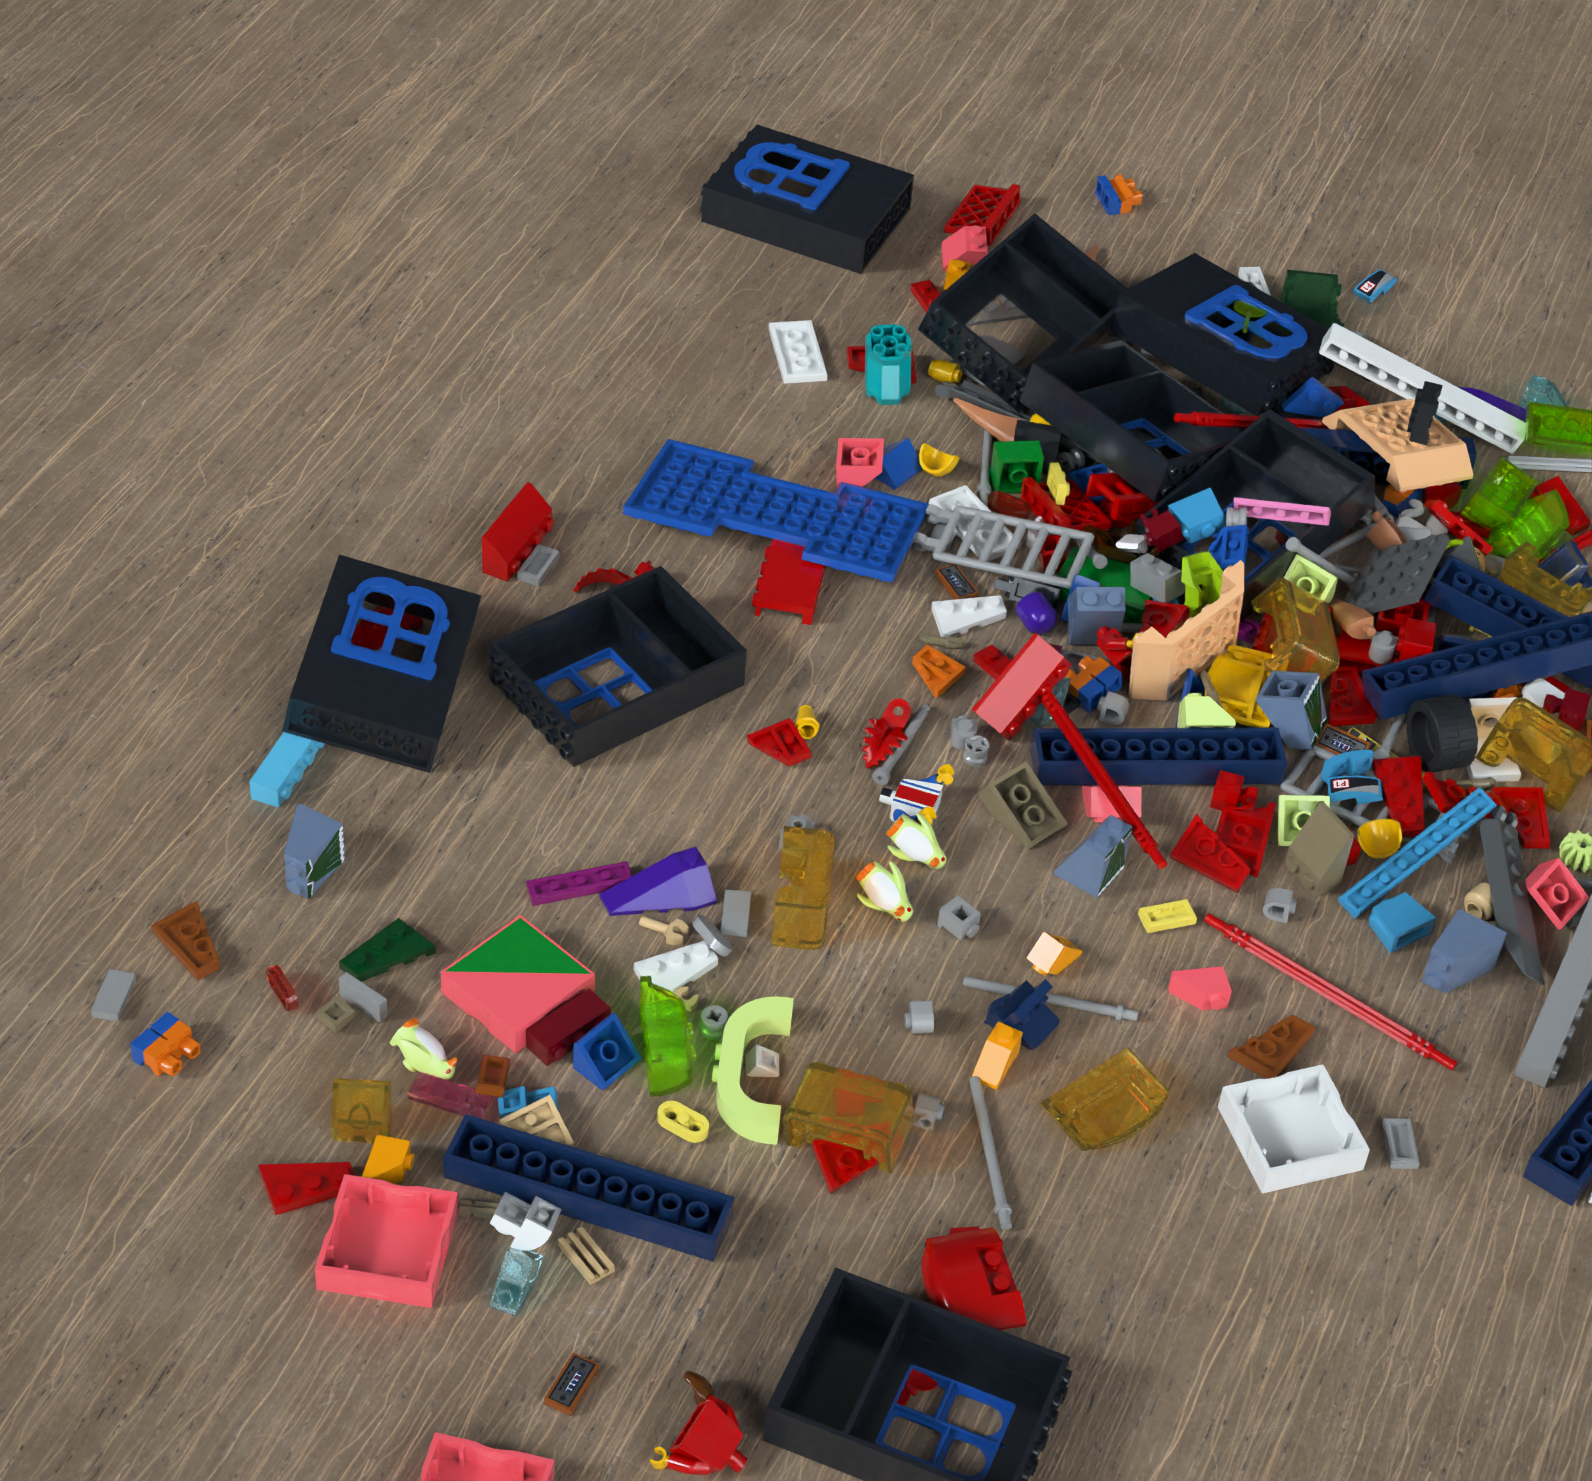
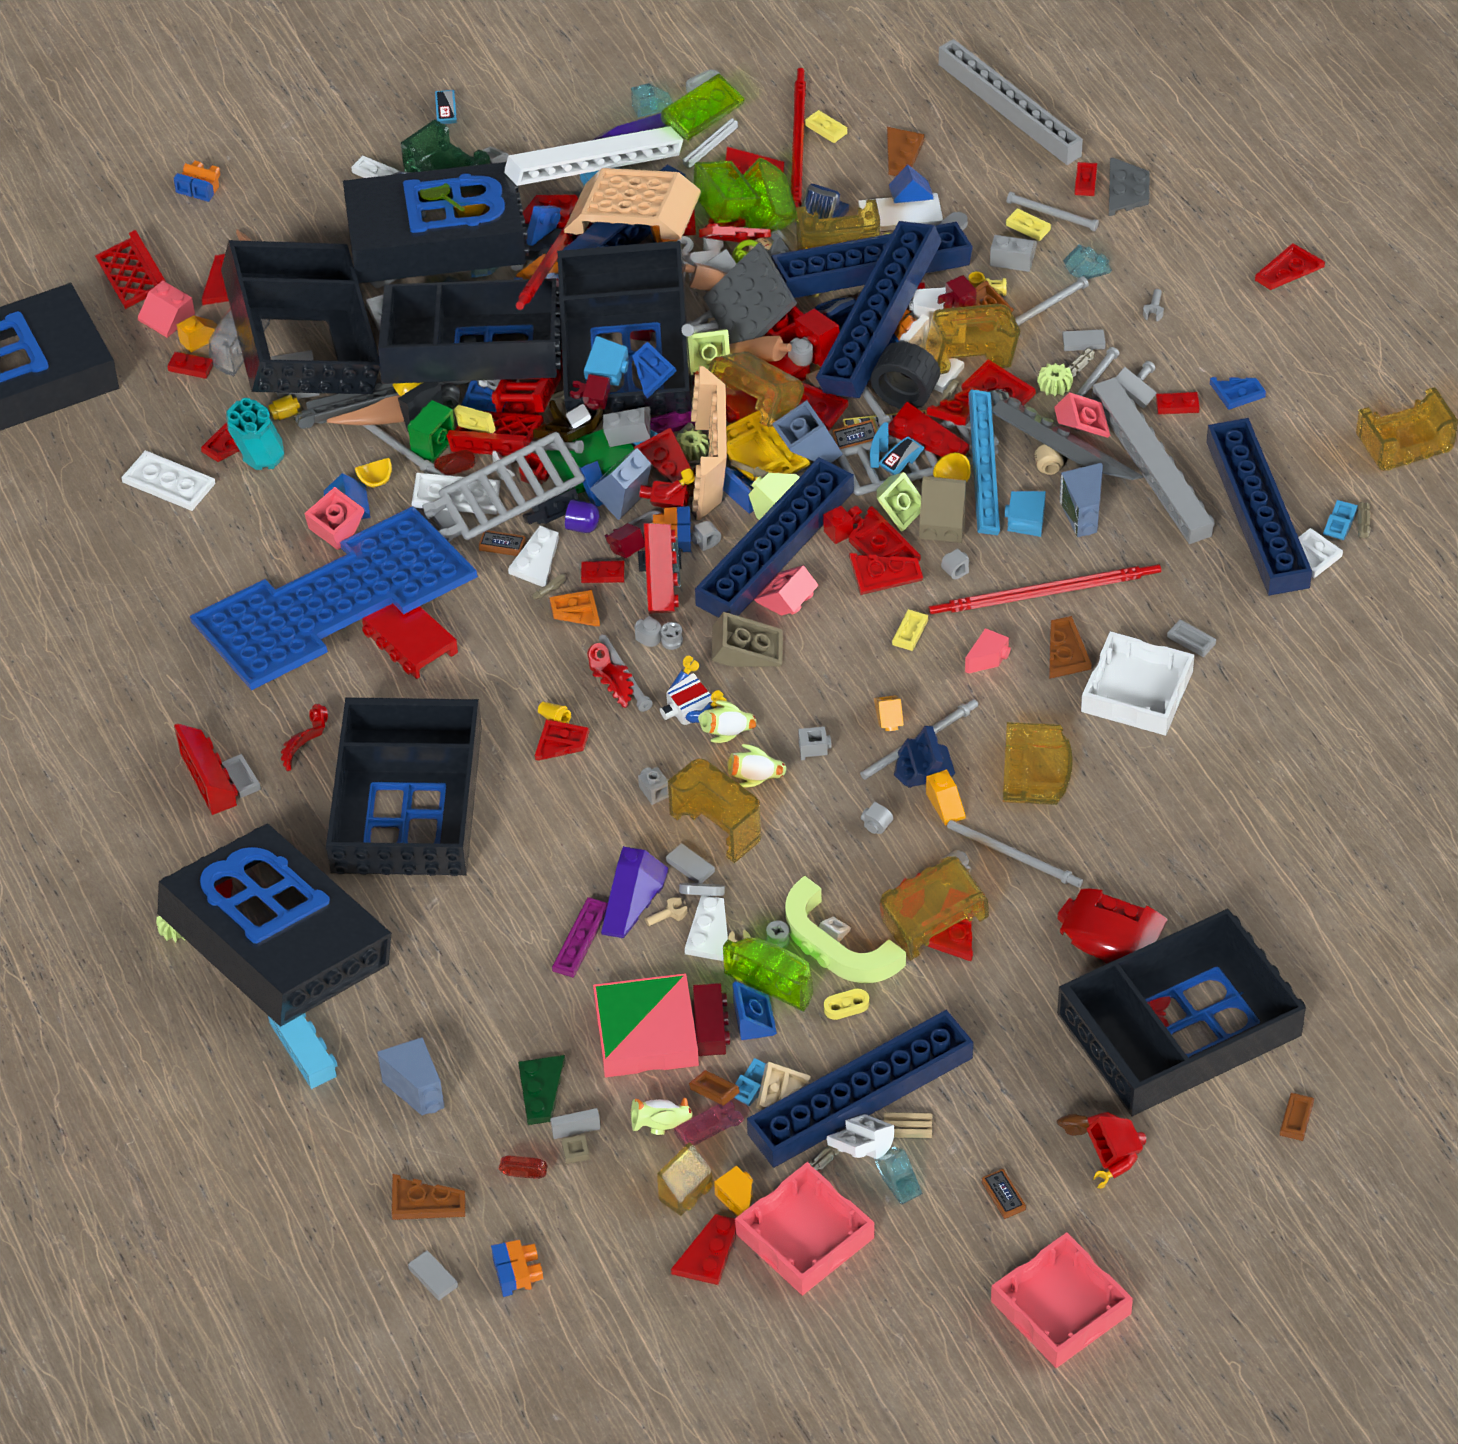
camera: 45 degrees left, 5 degrees up
(1097, 857) = (831, 631): sand blue slope -> none
(1103, 779) = (779, 579): red axle -> none
(1203, 570) = (666, 402): lime piece -> none
(1236, 517) = (633, 342): light grey wheel -> none
(1284, 511) = (654, 314): bright pink slope -> none
(1423, 411) = (641, 171): black brick -> none

